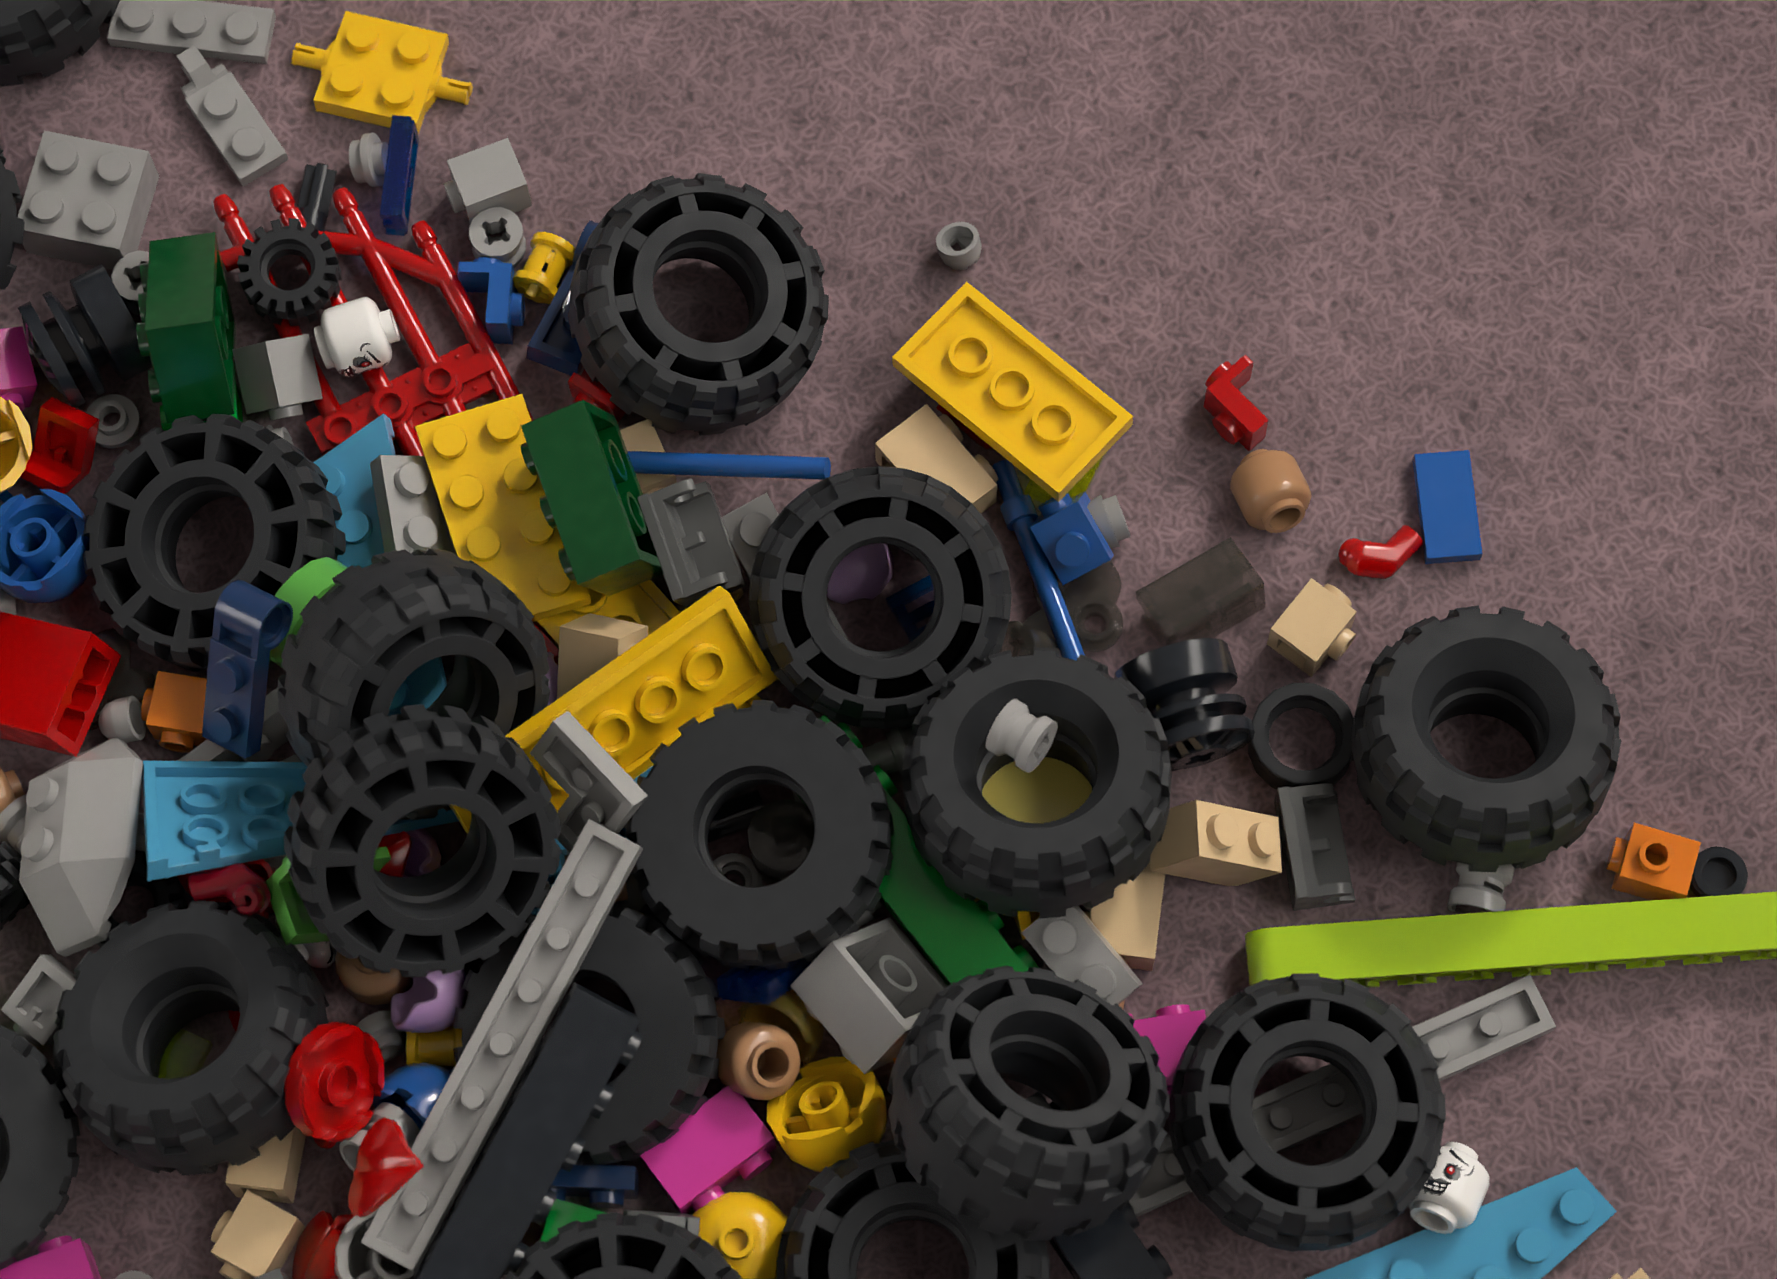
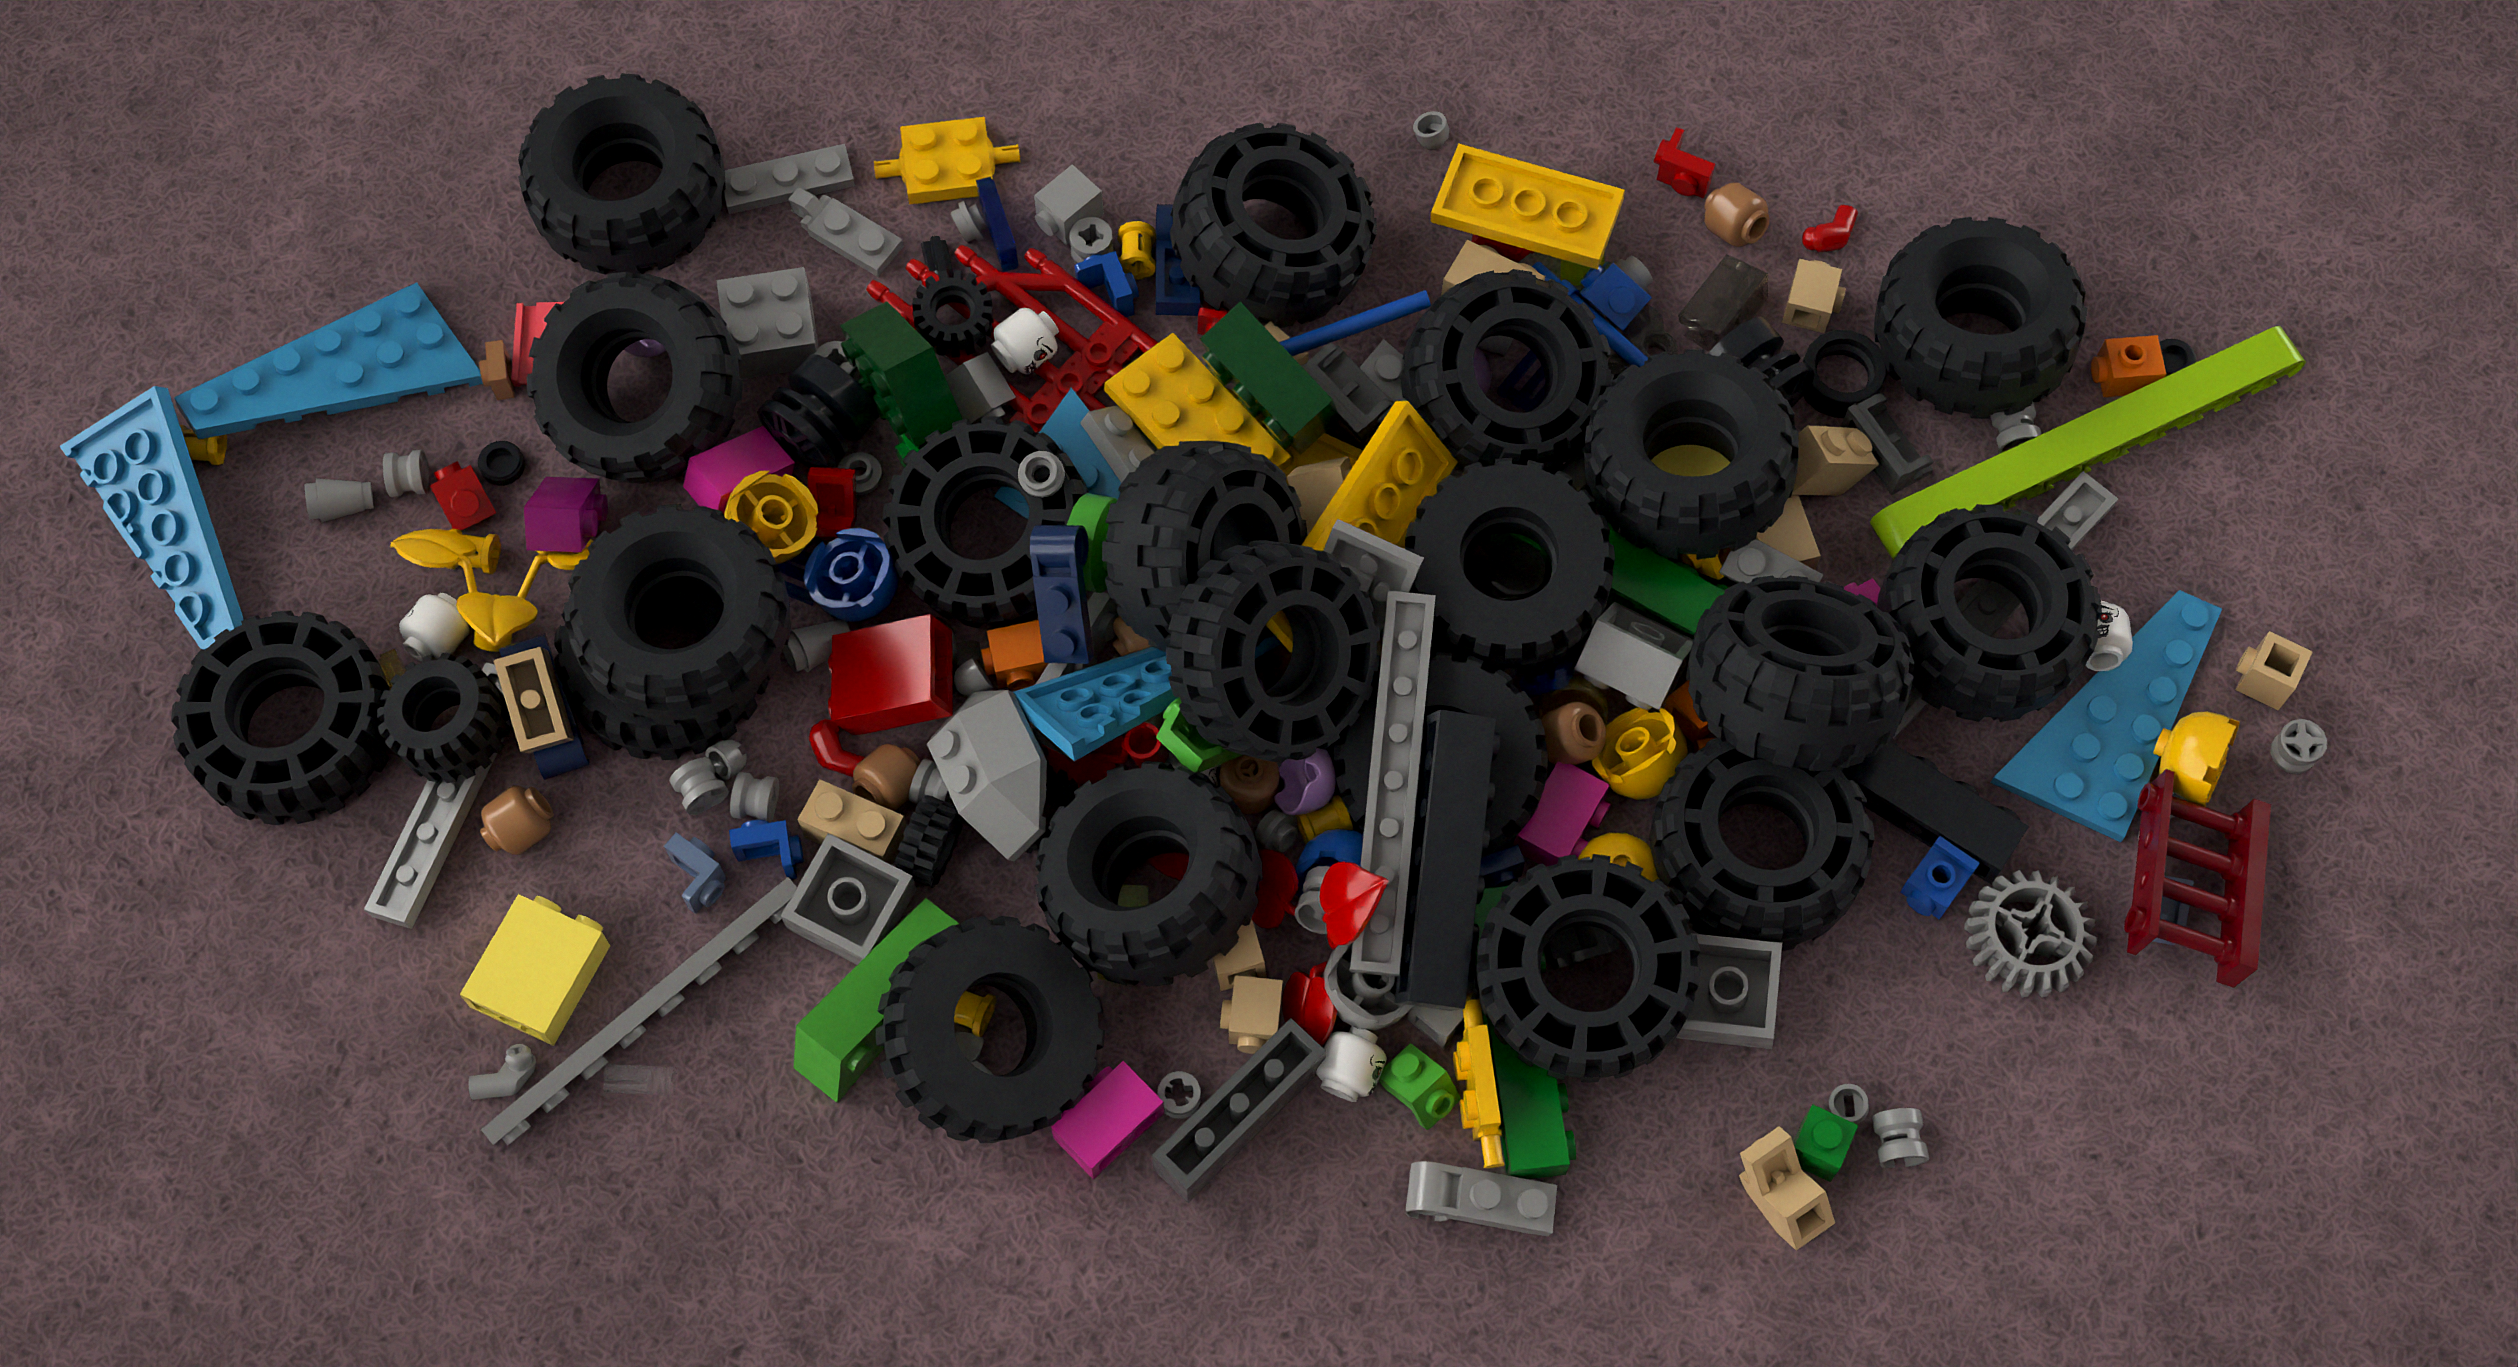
camera: 25 degrees left, 5 degrees down
(37, 999) = (1012, 895): light grey bracket -> none
(236, 883) = (1135, 745): dark red arm -> none
(260, 517) = (1031, 464): none -> light grey plate
(334, 1081) = (1277, 859): red tile -> none
(1021, 735) = (1681, 410): light grey wheel -> none
(1447, 507) = (1862, 184): blue tile -> none

